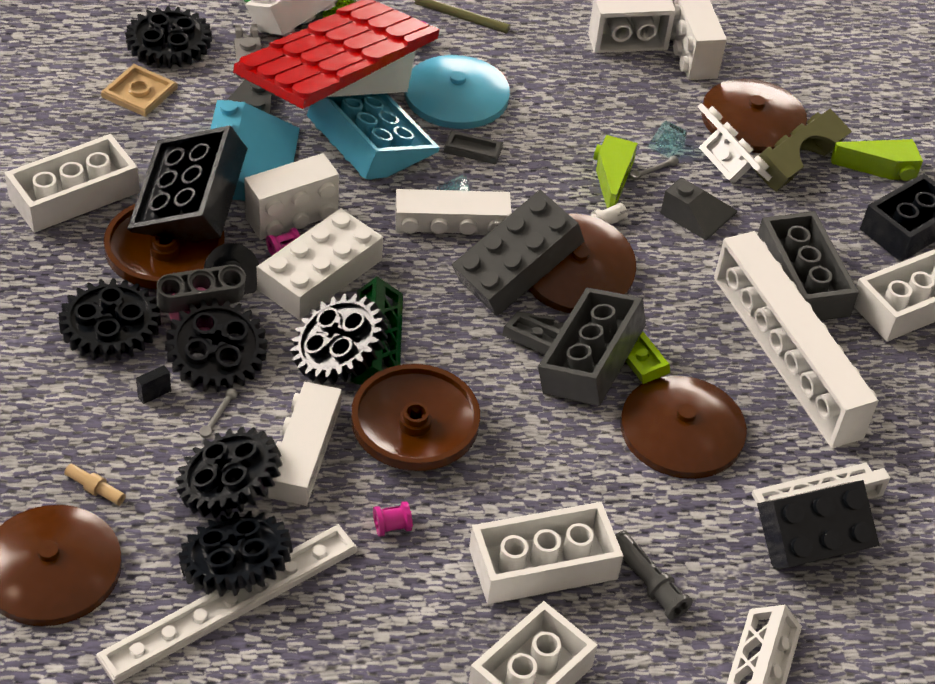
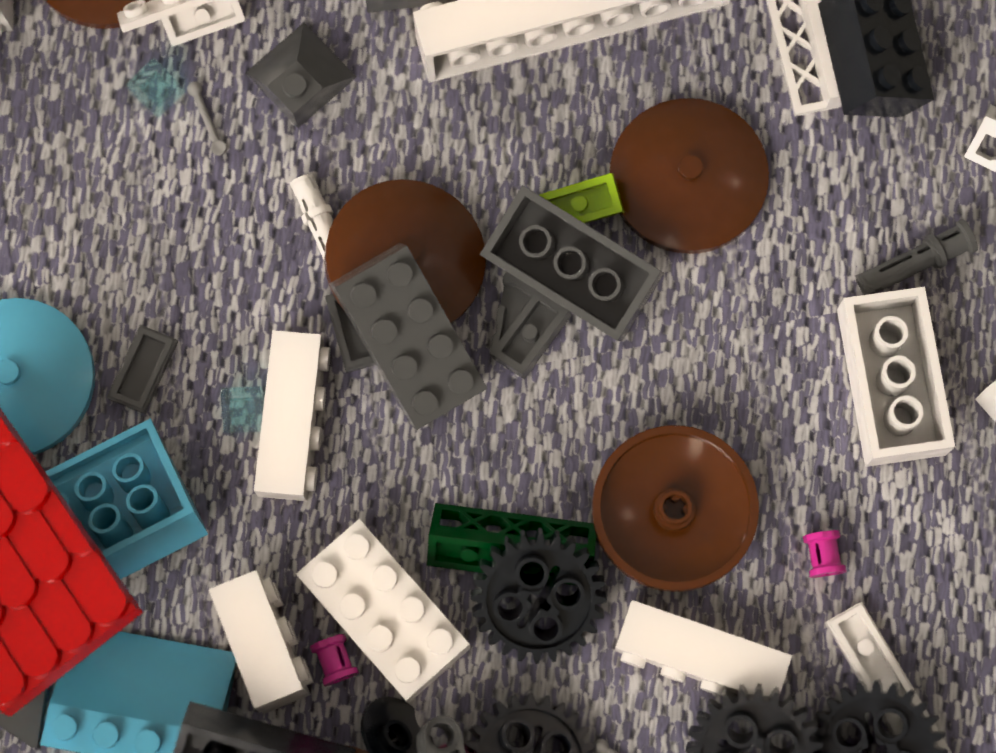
camera: 75 degrees left, 30 degrees up
(613, 166) = (215, 175): lime slope -> none

